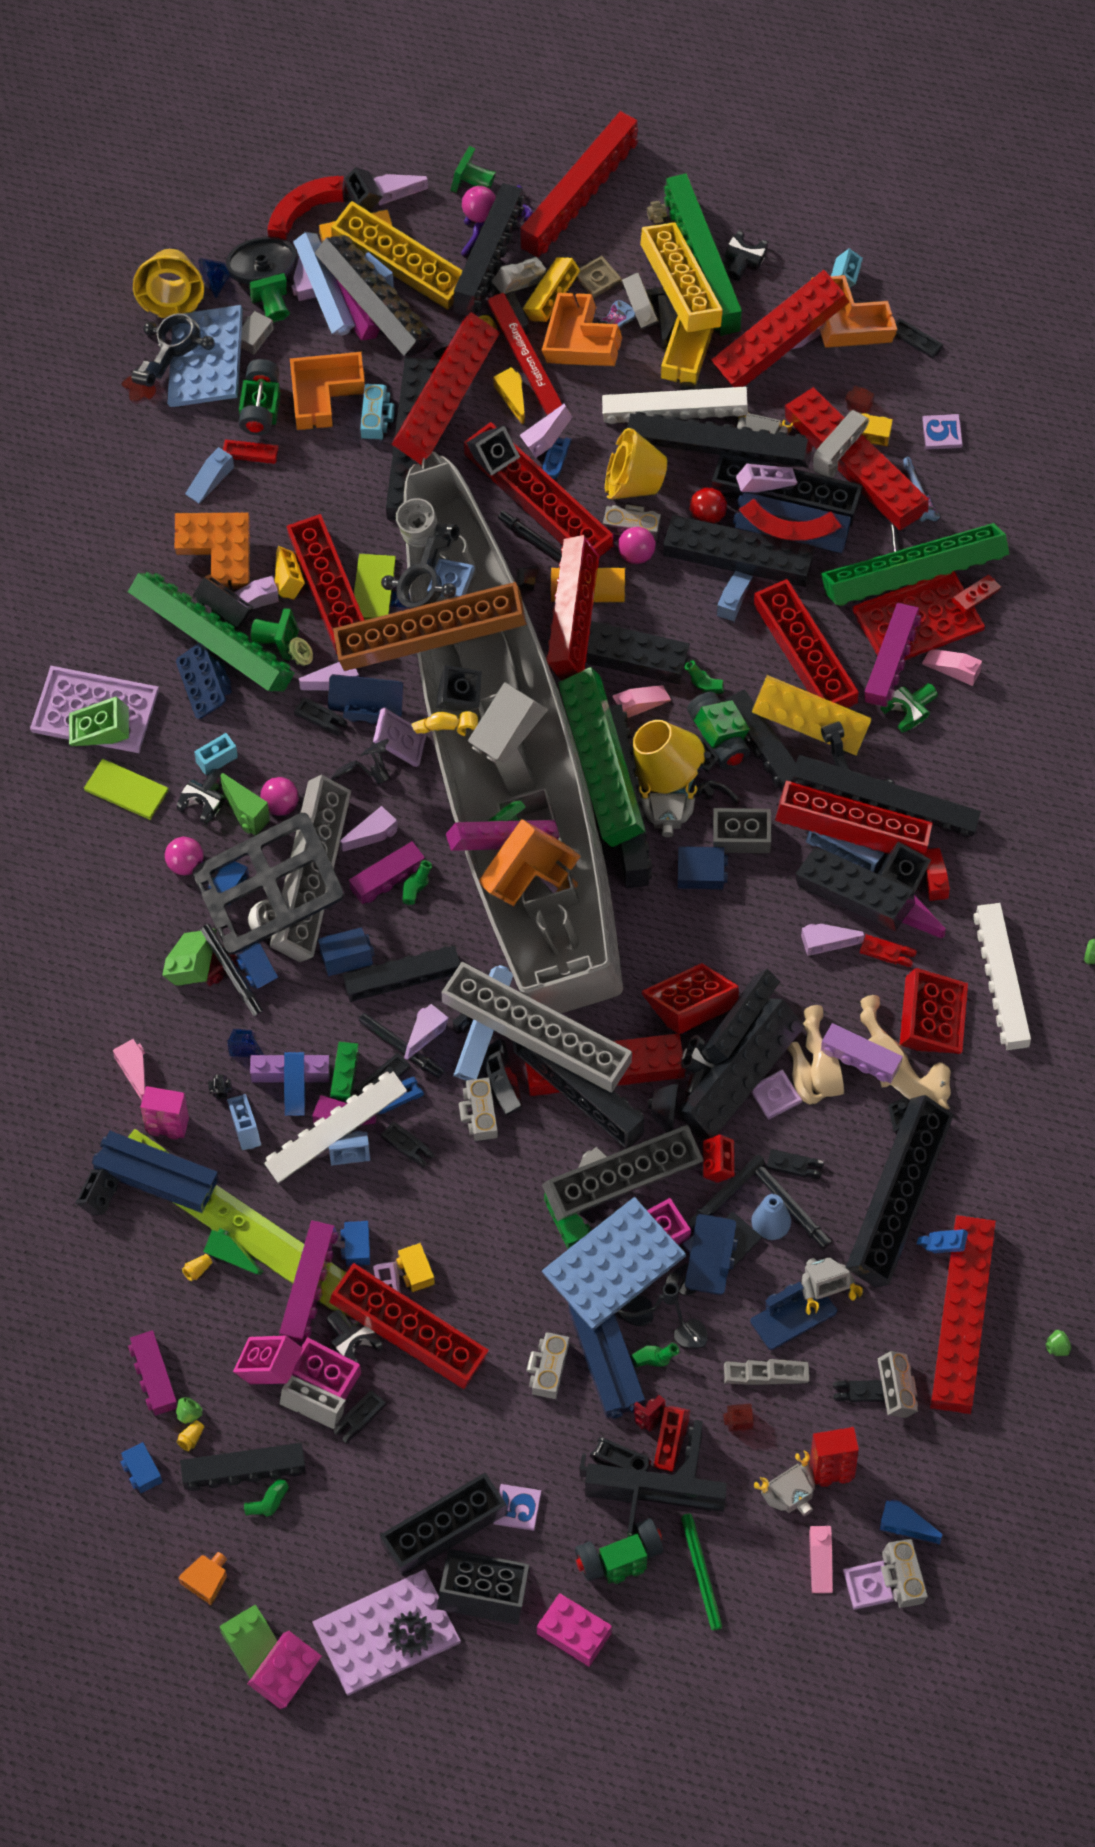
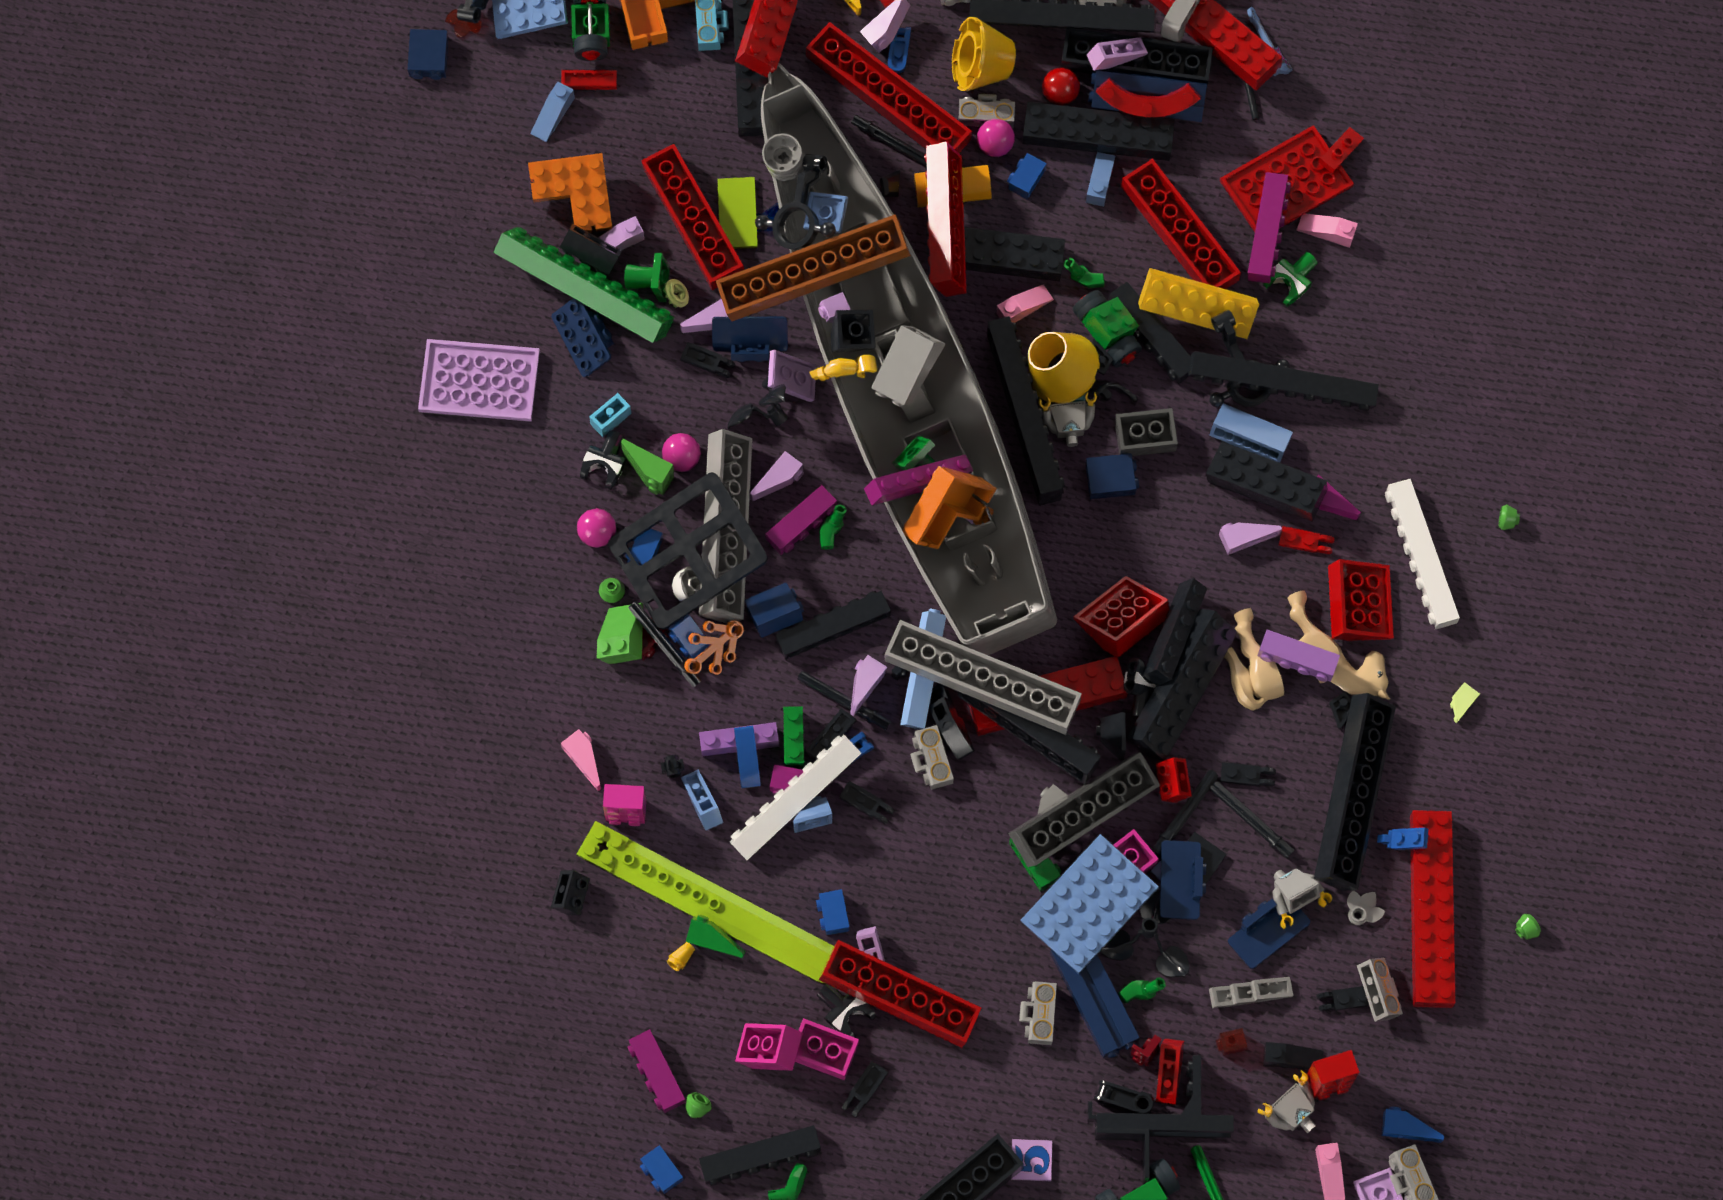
camera: 10 degrees left, 10 degrees up
(99, 411) = (427, 53): none -> dark blue brick
(99, 723) = (488, 397): bright green slope -> none
(126, 789) = (525, 461): lime tile -> none
(156, 1171) = (625, 865): dark blue brick -> none
(189, 916) = (611, 590): none -> bright green cone
(190, 1436) = (703, 1130): yellow cone -> none
(243, 1044) = (688, 718): clear blue slope -> none
(283, 977) = (716, 646): none -> orange plant
(287, 574) = (649, 210): yellow slope -> none
(308, 1281) = (793, 959): magenta brick -> none
(312, 1402) = (818, 1082): light grey piece -> none
(416, 1267) = (895, 930): yellow brick -> none
(440, 660) = (831, 304): none -> lavender slope
(493, 449) = (838, 54): black slope -> none
(601, 757) = (999, 376): green brick -> none
(662, 583) = (1026, 176): none -> blue brick
(771, 1218) = (1233, 835): medium blue cone -> none
(776, 1094) = (1219, 704): lavender tile -> none
(790, 1437) = (1290, 1056): none -> black slope
(850, 819) = (1256, 412): red brick -> none
(895, 1304) = (1365, 906): none -> light grey plate
(904, 866) = (1310, 453): black slope -> none
(915, 564) = (1277, 126): green brick -> none
(936, 876) = (1341, 453): red slope -> none
(1023, 1119) = (1463, 700): none -> yellowish green slope

